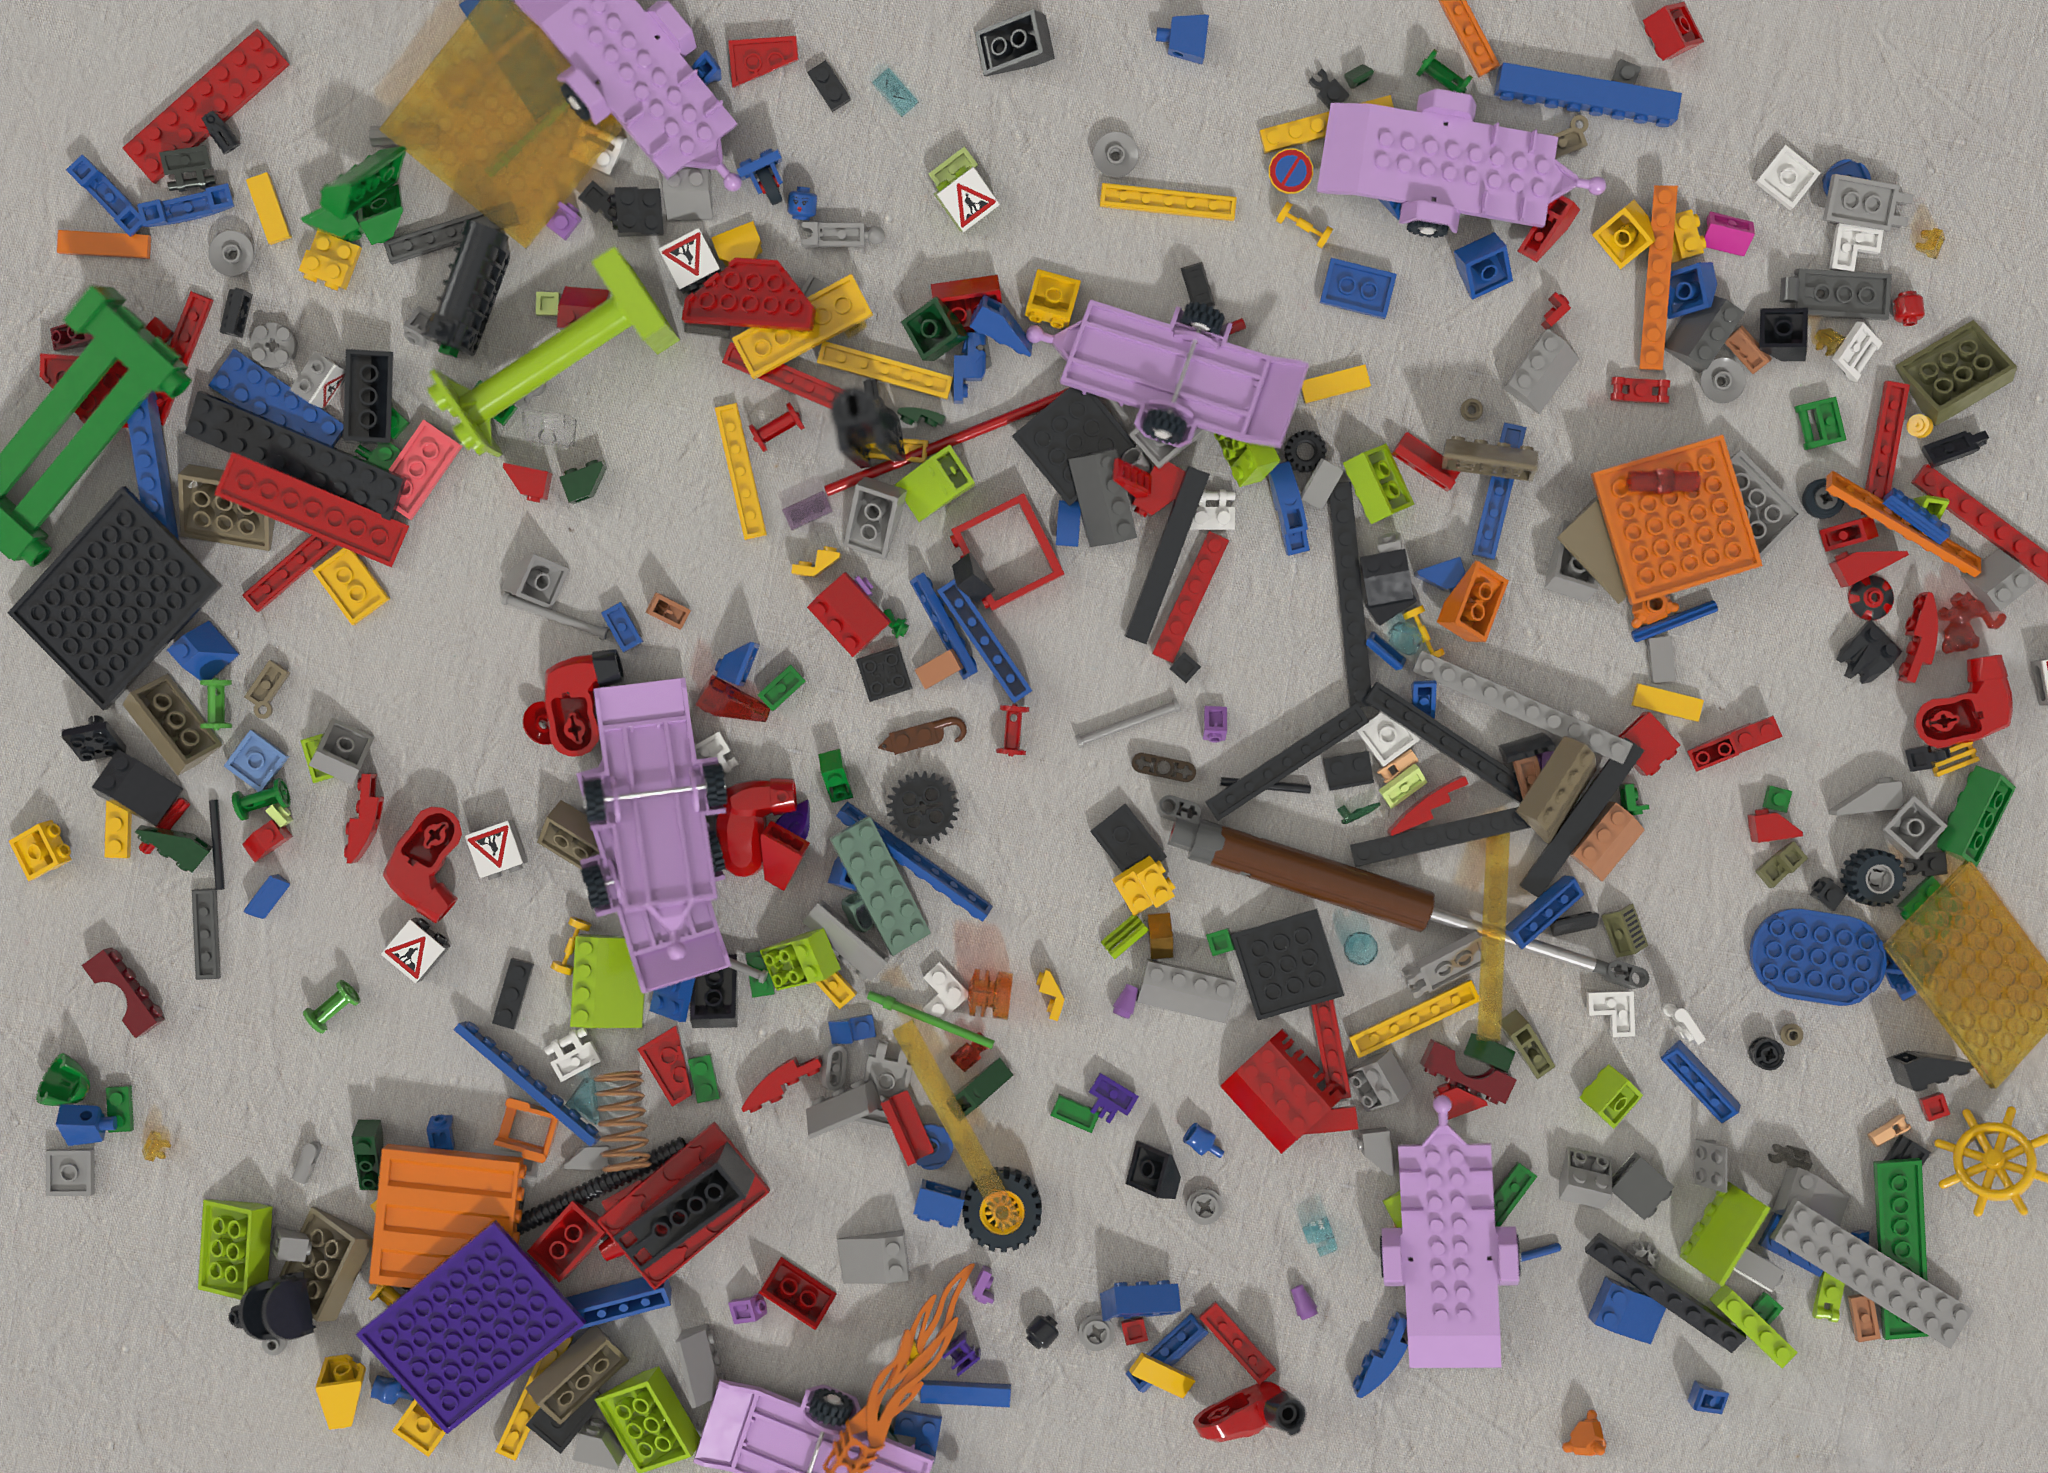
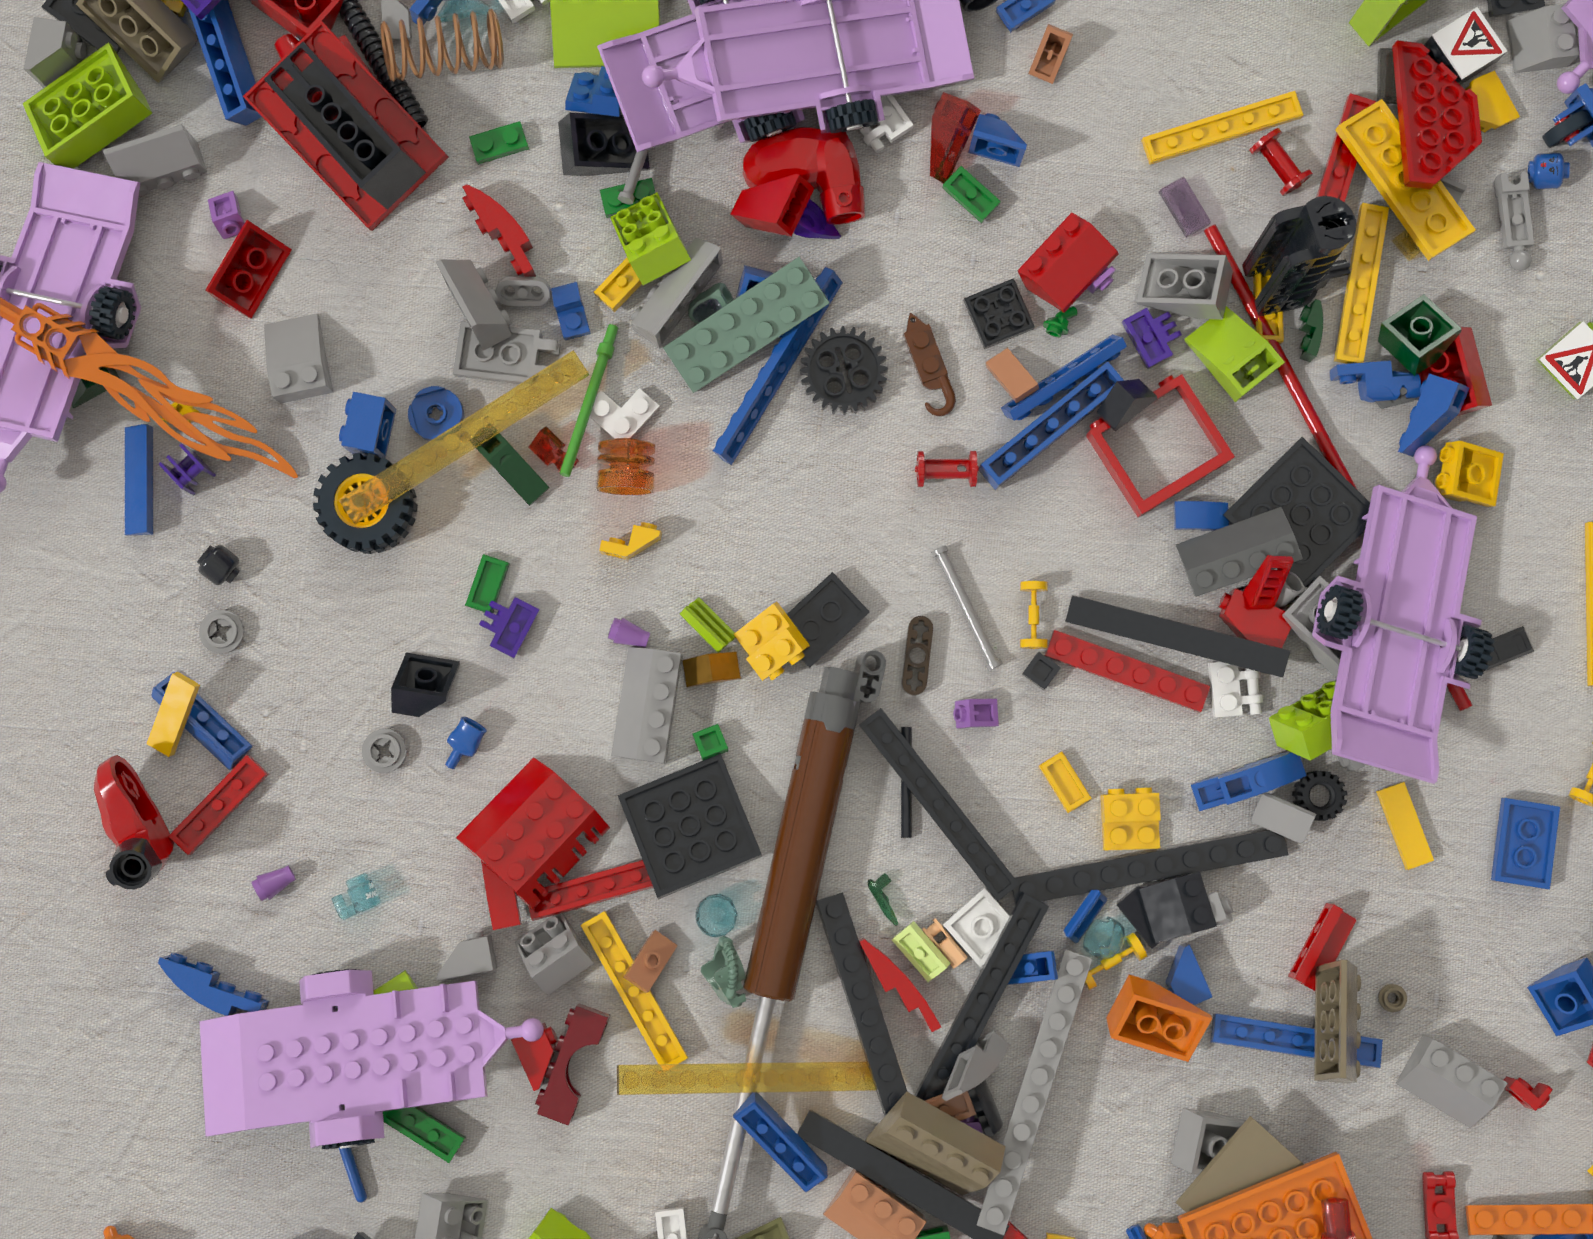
camera: 80 degrees right, 5 degrees down
(668, 1065) = (511, 99): red wing -> none
(824, 560) = (1126, 230): yellow slope -> none
(835, 775) = (872, 264): green slope -> none
(907, 1127) = (457, 381): red panel -> none
(914, 549) = (1151, 336): none -> dark purple hinge
(922, 1427) = (95, 432): blue plate -> none
(983, 1282) = (275, 490): medium lavender bracket -> none
(1134, 1331) = (226, 677): red plate -> none
(1139, 669) = (1033, 614): none -> yellow wheel
(1140, 1300) = (264, 680): blue wedge -> none
(1276, 656) = (1064, 782): none -> yellow tile
(1311, 606) = (1130, 819): none -> yellow plate
(1348, 770) = (933, 883): black plate -> none
(1378, 483) = (1290, 888): lime slope -> none
(1392, 1004) = (650, 961): none -> nougat plate
(1407, 944) = (725, 973): none -> sand green piece
(1445, 966) = (702, 1021): light grey tile -> none
(1490, 1052) = (598, 1090): dark green slope -> none
(1498, 752) = (975, 1065): none -> light grey slope
(1527, 1044) = (613, 1135): olive slope -> none
(1574, 923) = (768, 1183): black slope -> none

